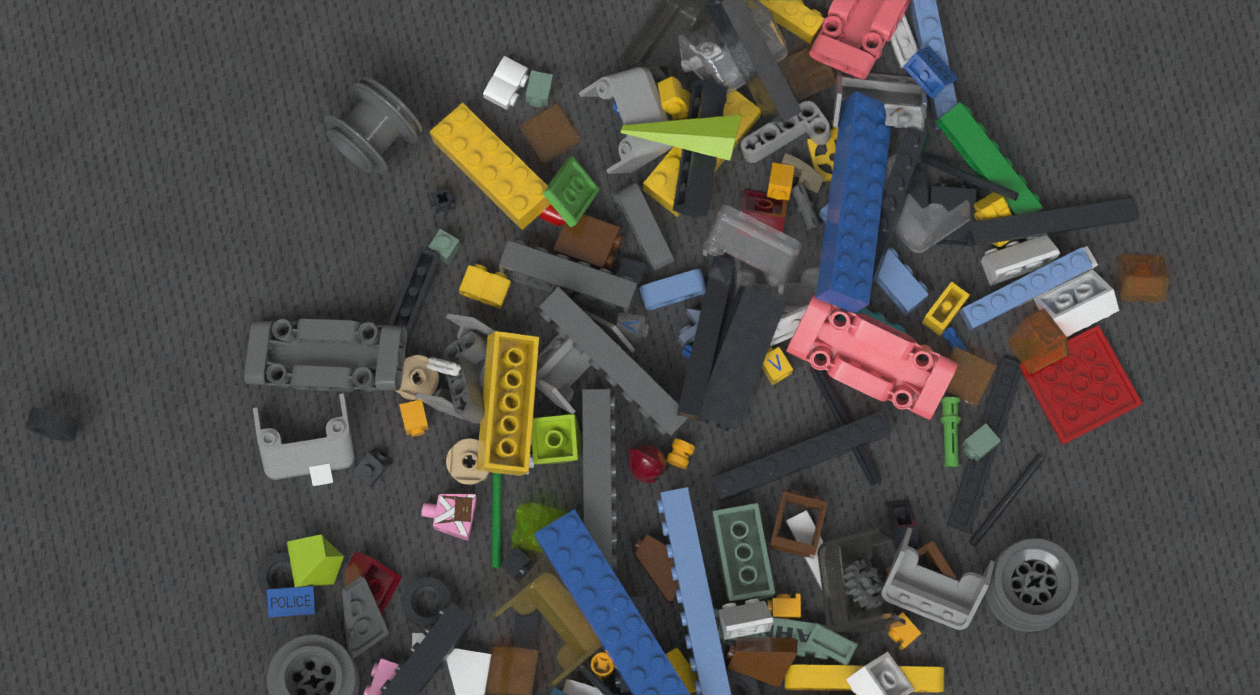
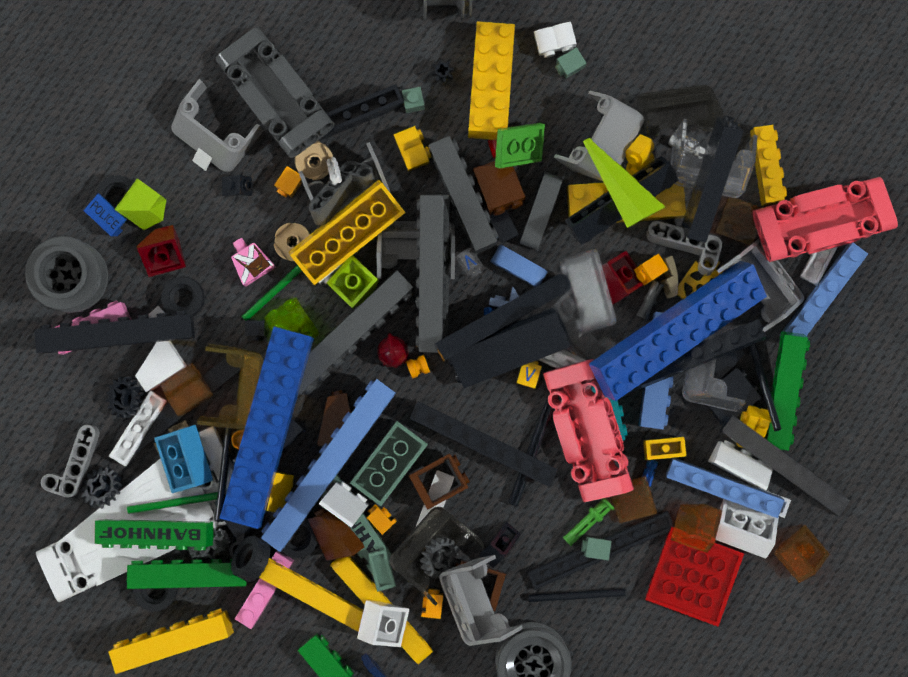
camera: 50 degrees right, 10 degrees up
(362, 617) = (133, 267): dark grey wing -> none
(550, 134) = (548, 97): clear orange tile -> none
(905, 115) = (764, 309): light grey hips -> none
(930, 71) = (811, 299): blue panel -> none

